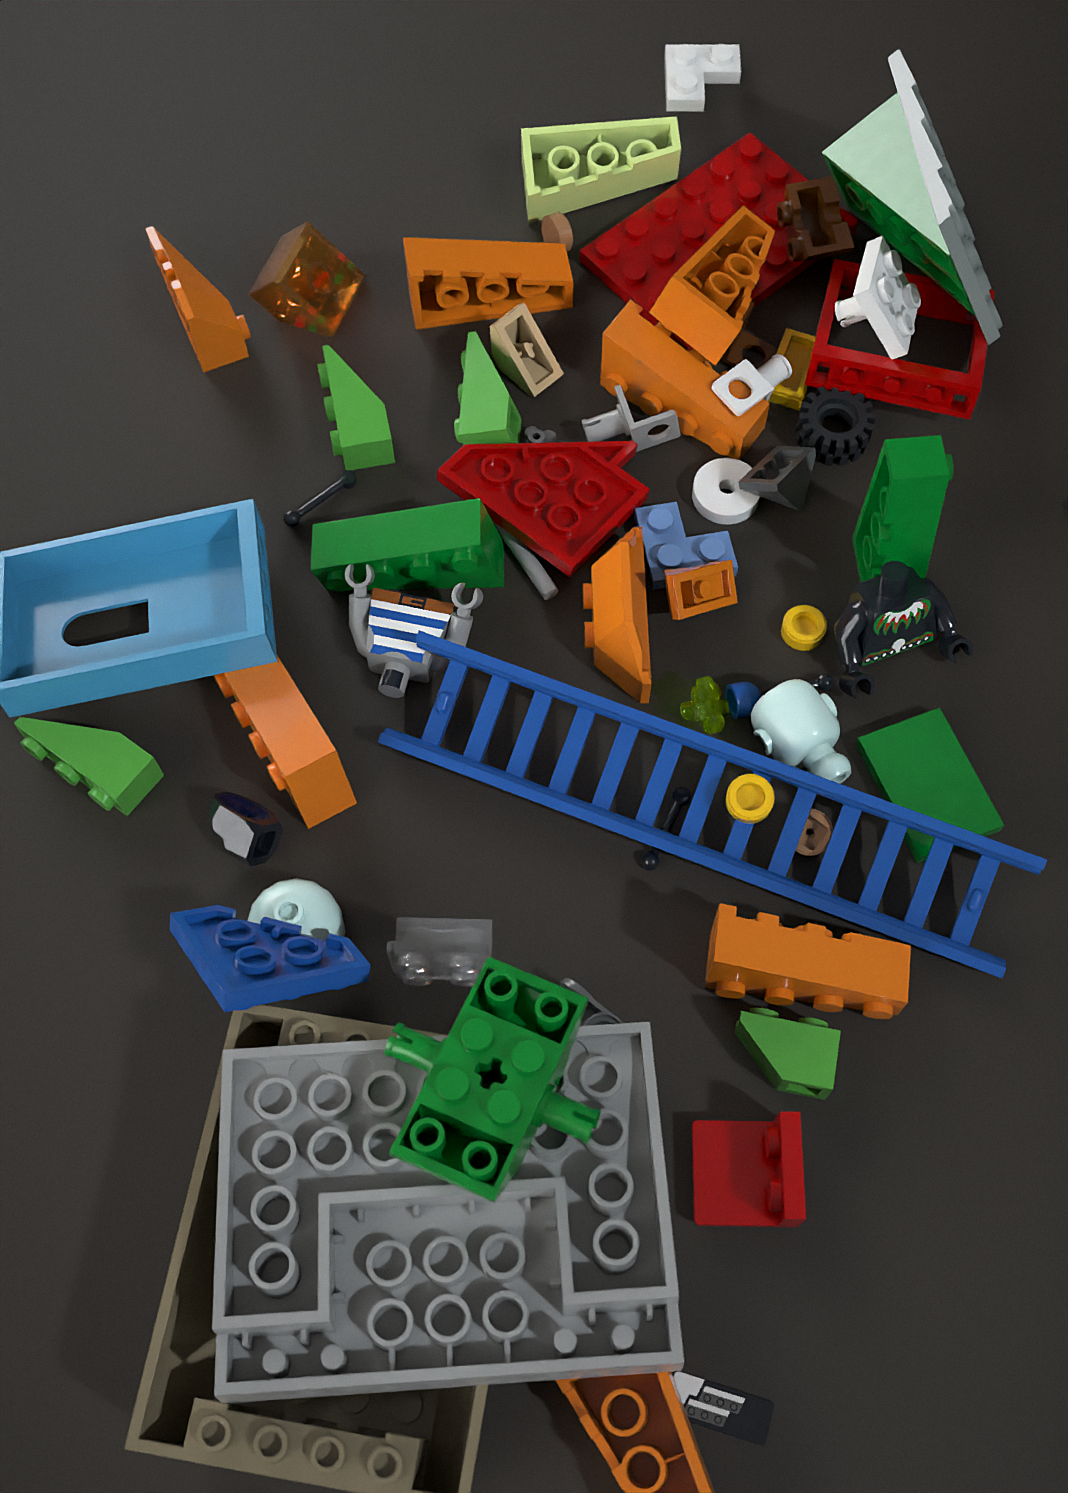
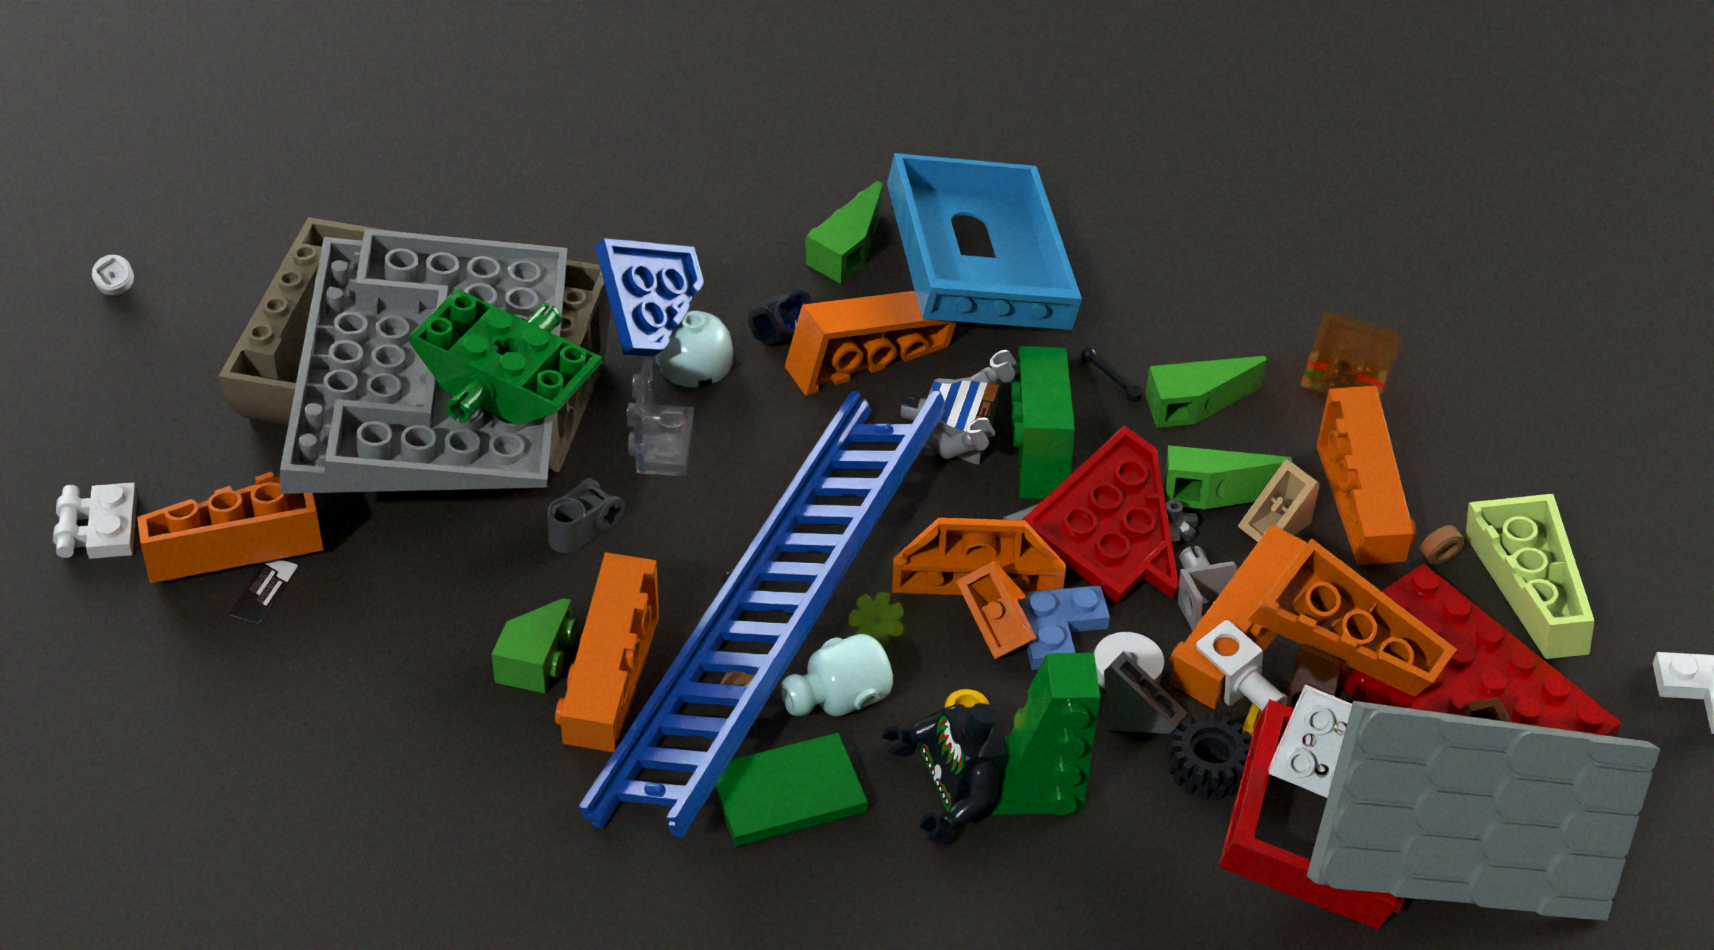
camera: 90 degrees right, 20 degrees down
(204, 311) = (1305, 278): orange wedge -> none
(744, 695) = (893, 648): blue hinge -> none
(748, 1172) = (437, 613): red bracket -> none
(749, 798) = (766, 617): yellow tile -> none

